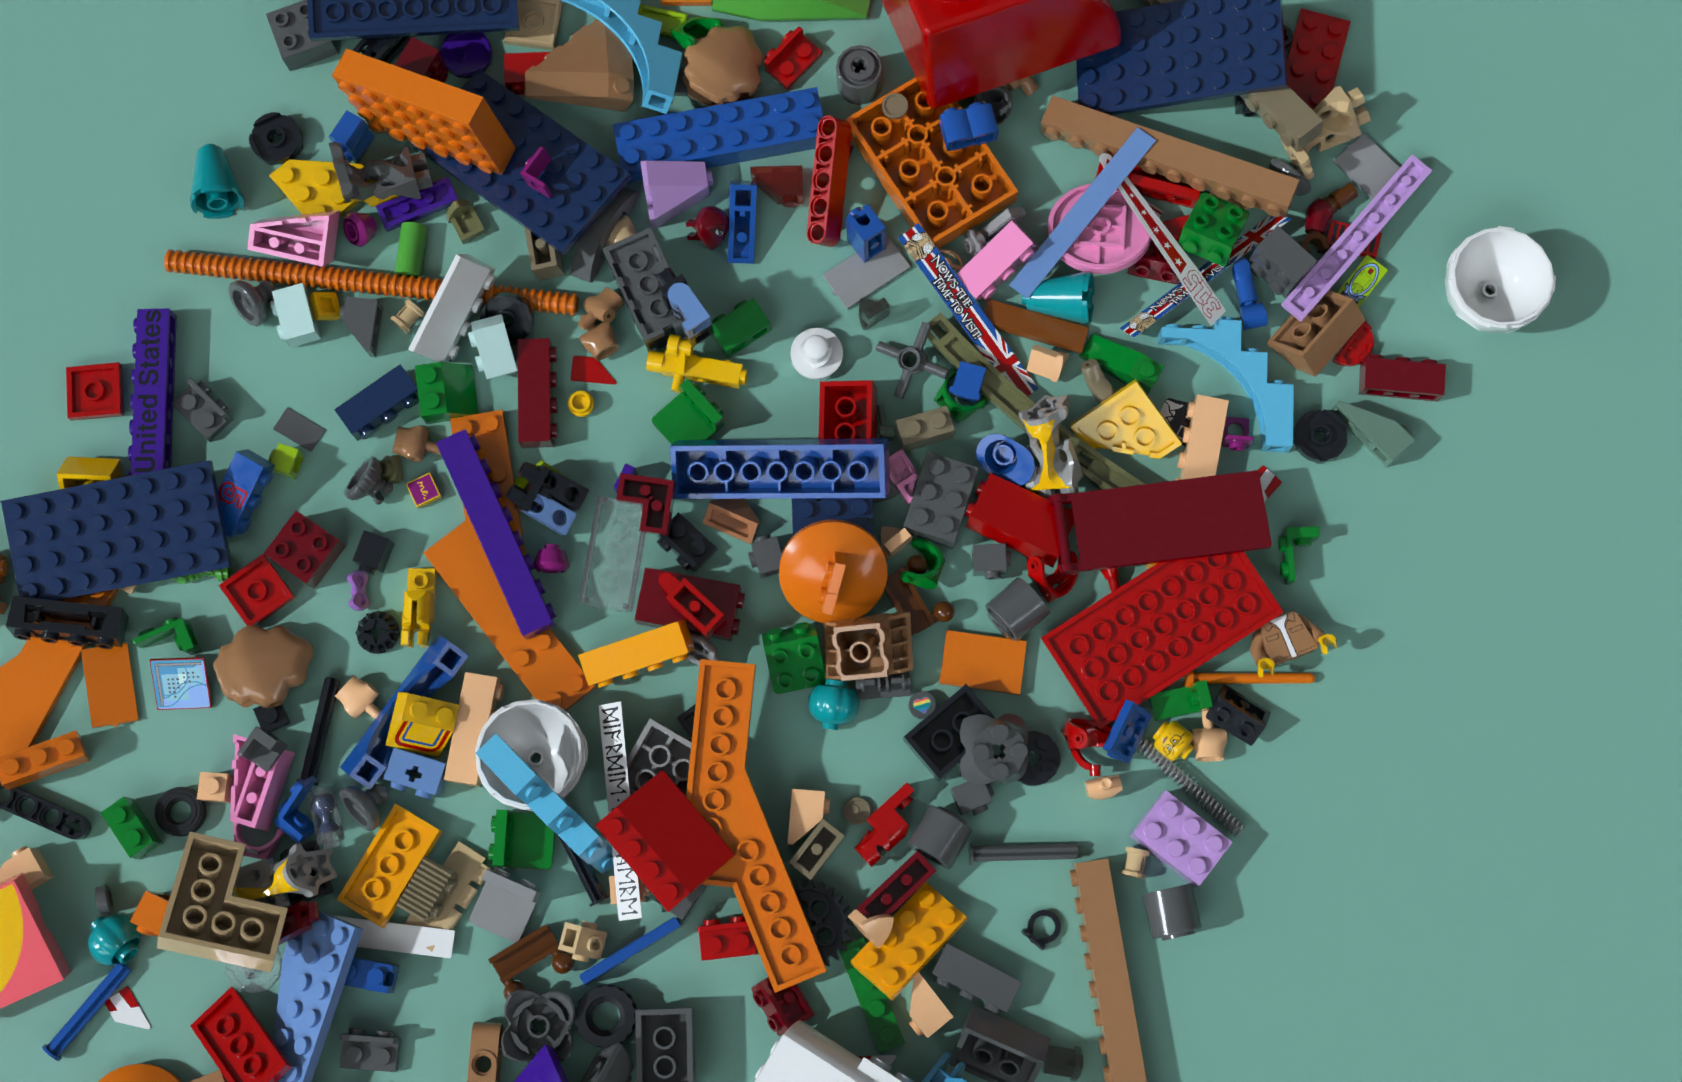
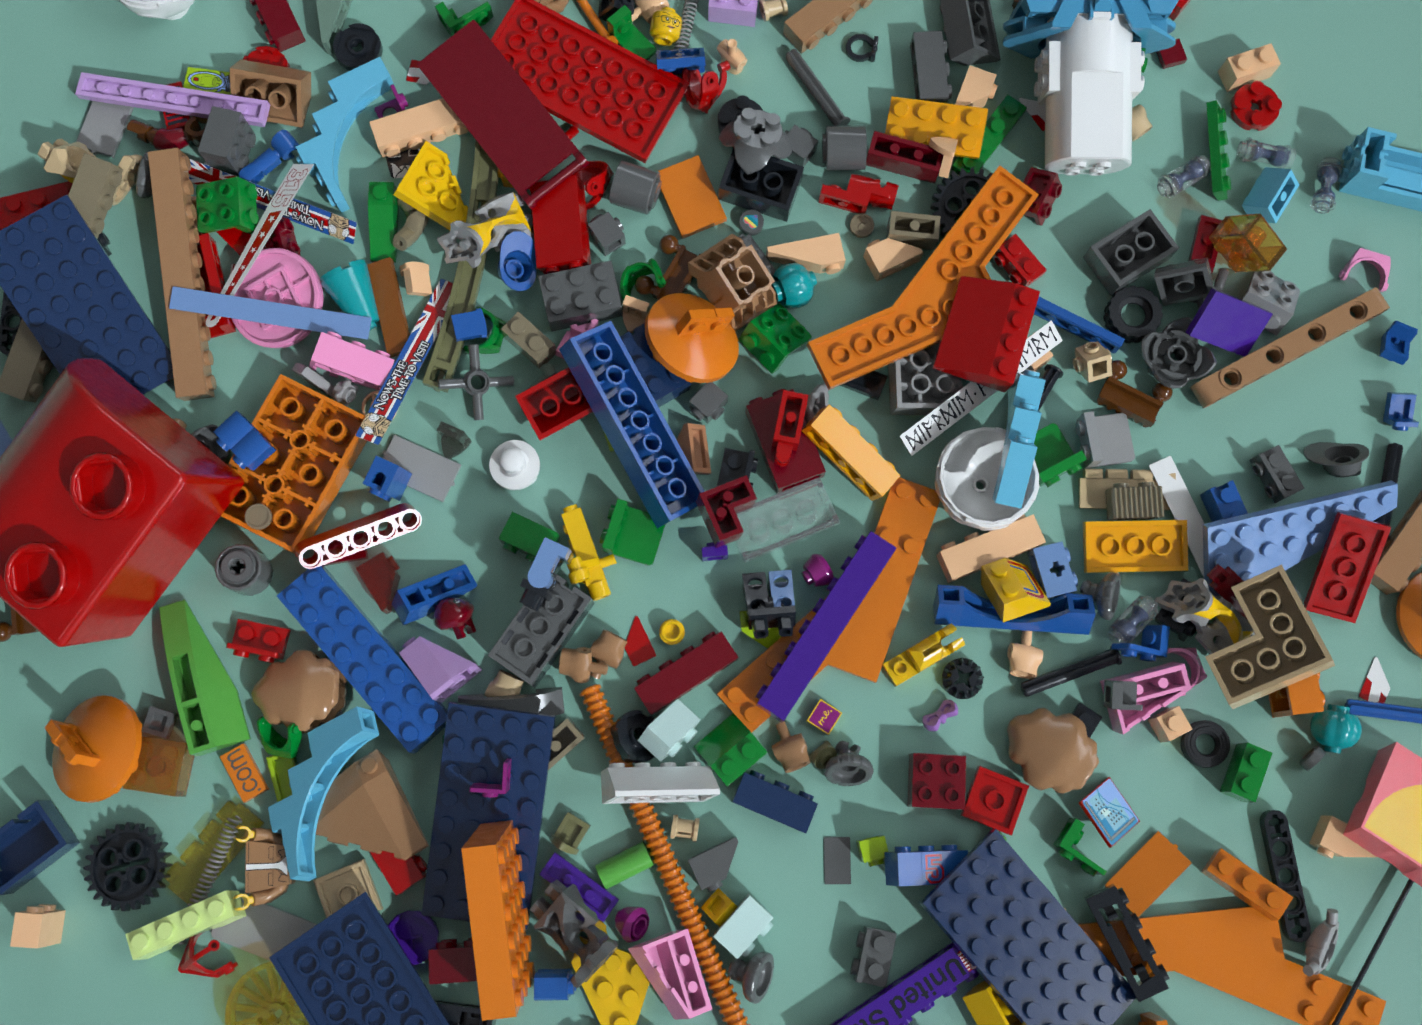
camera: 125 degrees left, 0 degrees up
(372, 553) = (903, 722): black brick -> none
(850, 744) = (815, 254): none -> light nougat slope

